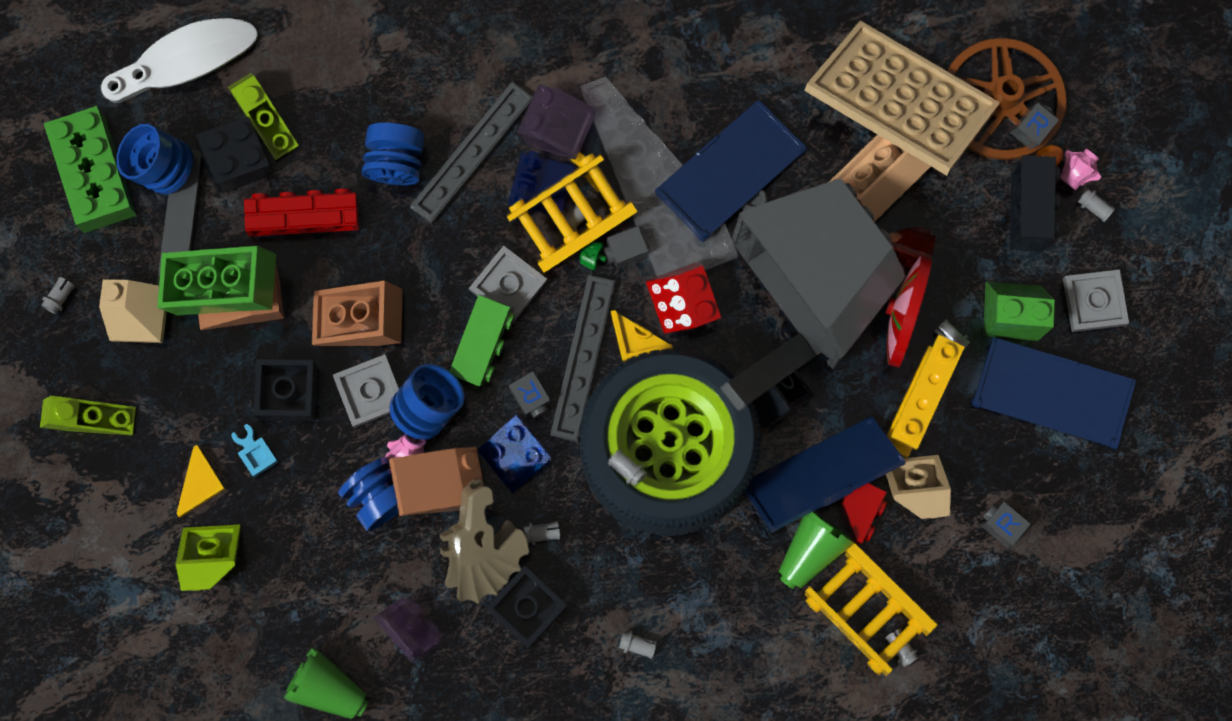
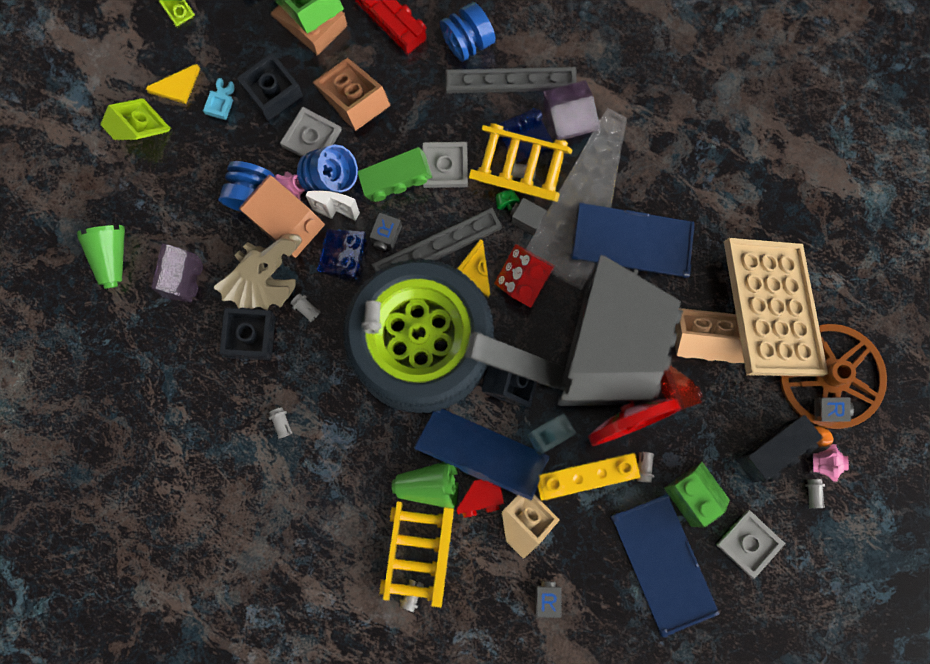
camera: 55 degrees right, 0 degrees up
(455, 429) = (331, 202): none -> white slope
(855, 397) = (551, 434): none -> clear light blue brick

